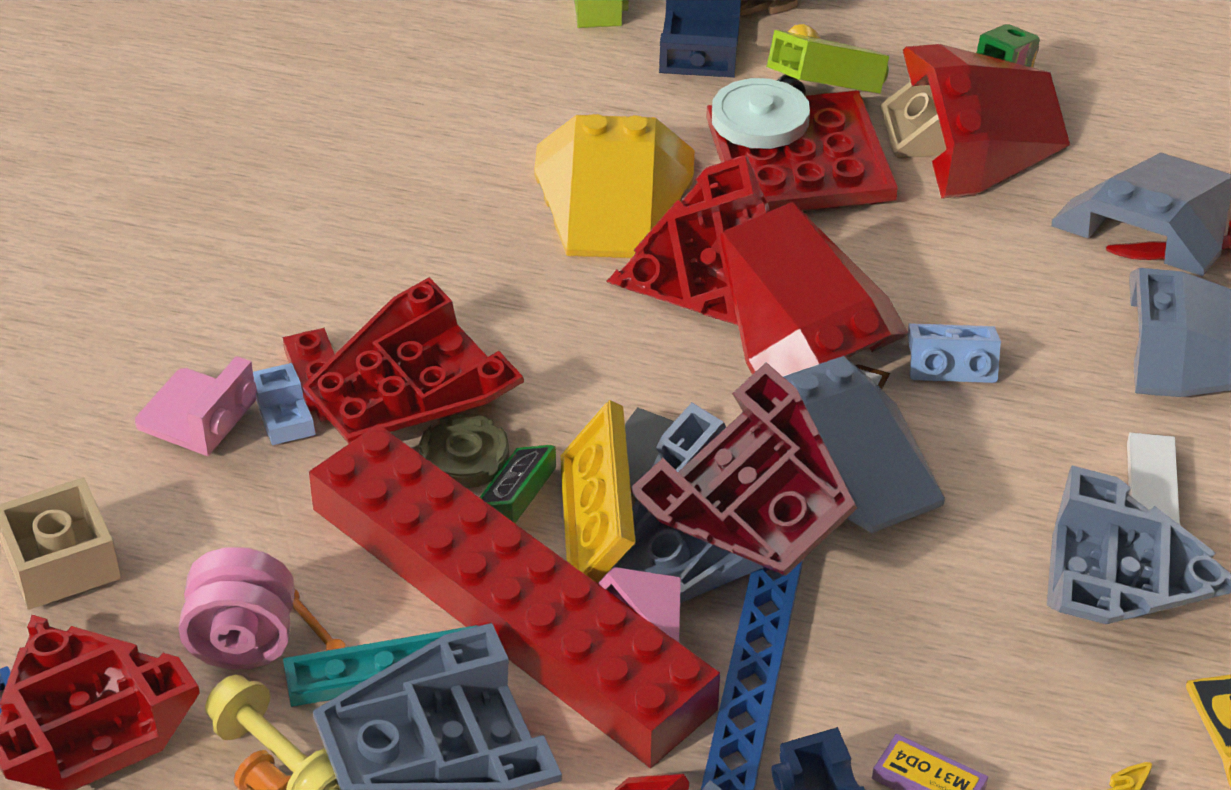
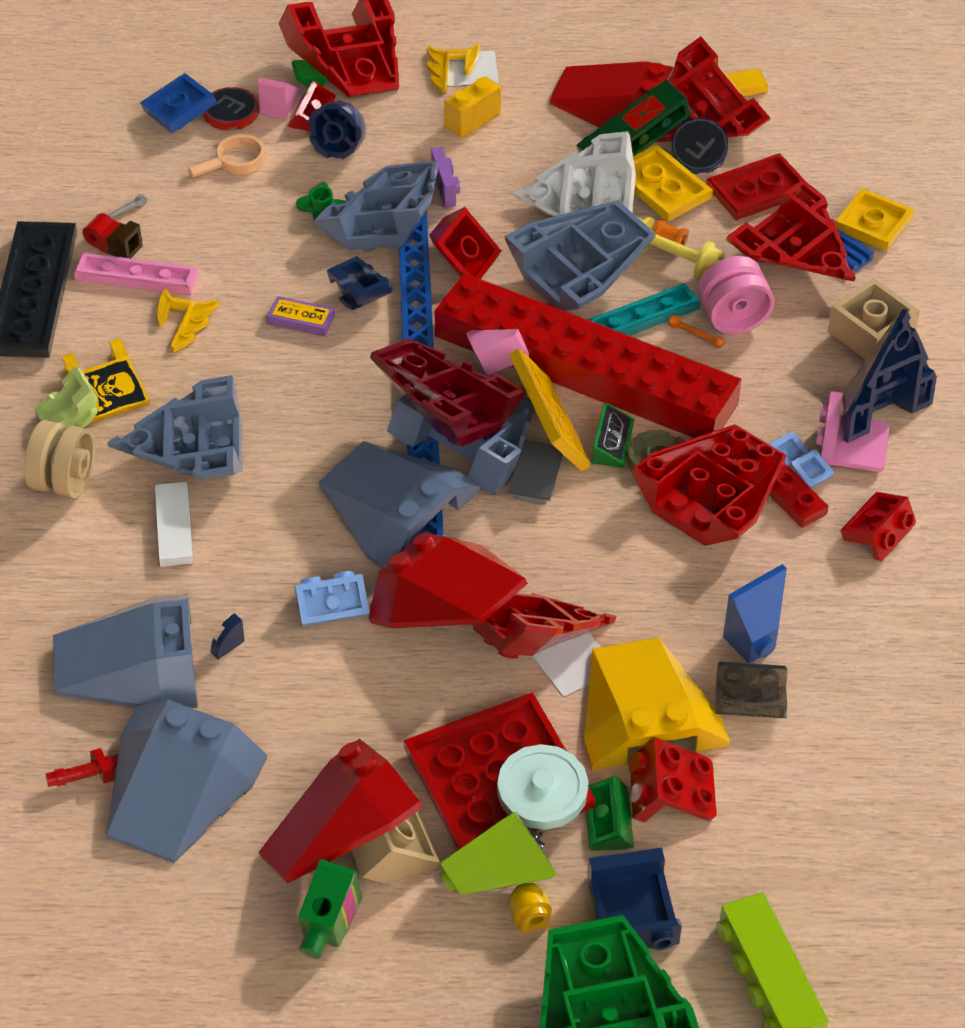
camera: 165 degrees right, 5 degrees up
(120, 403) = (890, 375): none -> dark blue wedge
(235, 304) = (880, 523): none -> red bracket
(447, 221) = (755, 615): none -> blue slope
(494, 167) = (751, 690): none -> clear smoke bracket
(625, 96) = (673, 778): none -> red bracket
(690, 109) = (610, 820): none -> green slope
(1086, 332) = (229, 638): none -> dark blue tile

